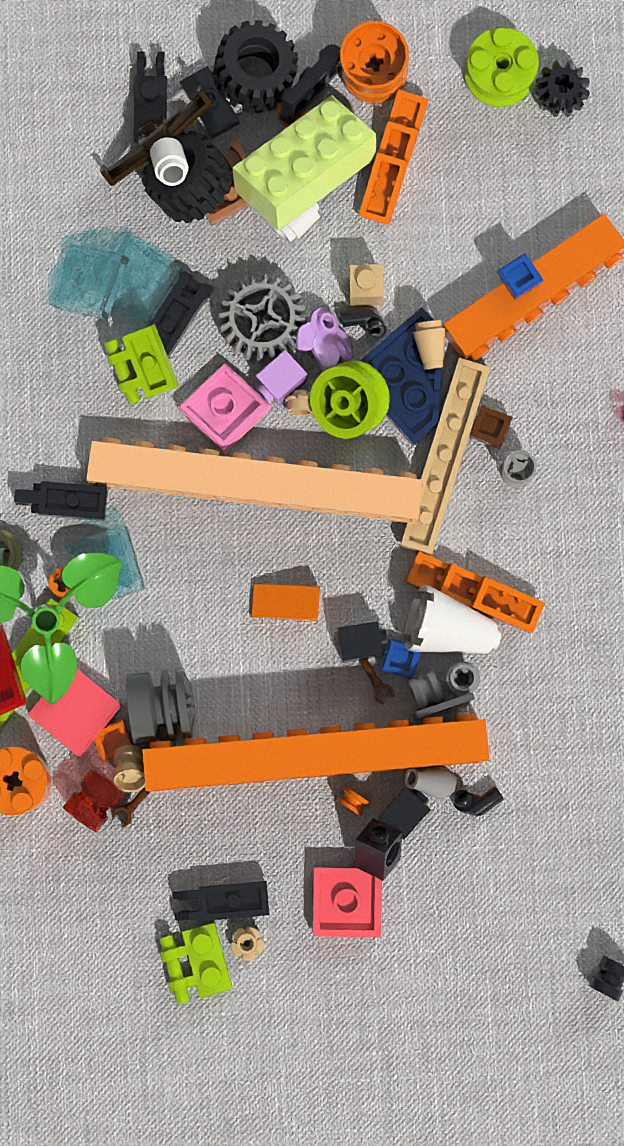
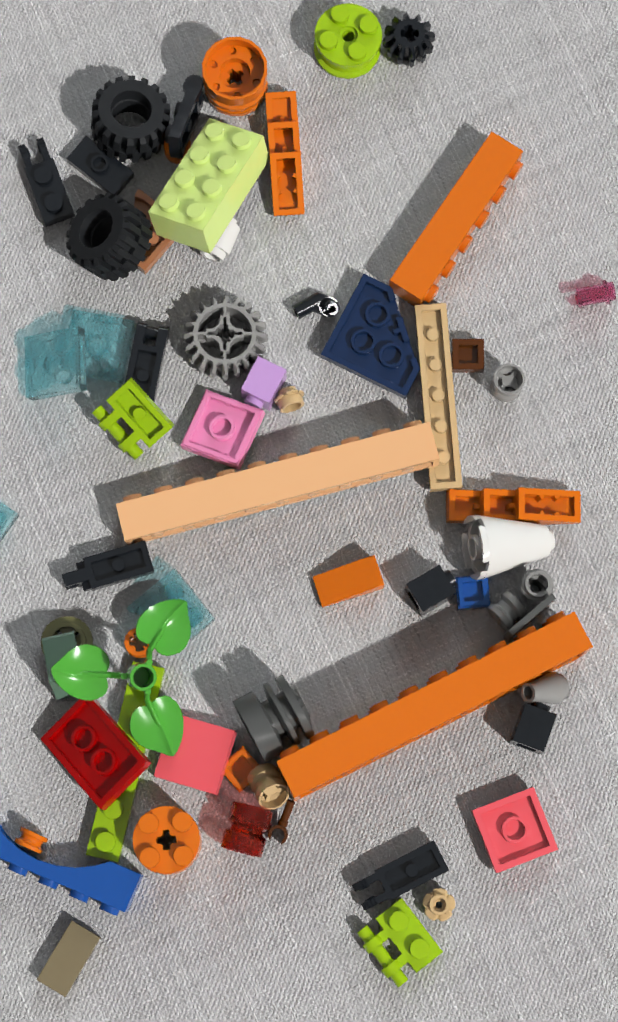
camera: 25 degrees left, 5 degrees down
(154, 130) = (66, 212): dark brown plate -> none
(169, 161) = (89, 226): white brick -> none
(326, 341) = (290, 334): lavender plate -> none
(349, 399) = (342, 362): lime wheel -> none
(353, 801) = (482, 736): orange bush -> none
(366, 285) = (306, 273): tan brick -> none
(376, 681) = (458, 621): reddish brown hand -> none
(378, 849) = (523, 769): black brick -> none
(430, 343) = (385, 301): tan cone -> none
(476, 804) = (593, 696): black arm -> none
(519, 276) = (440, 212): blue tile -> none

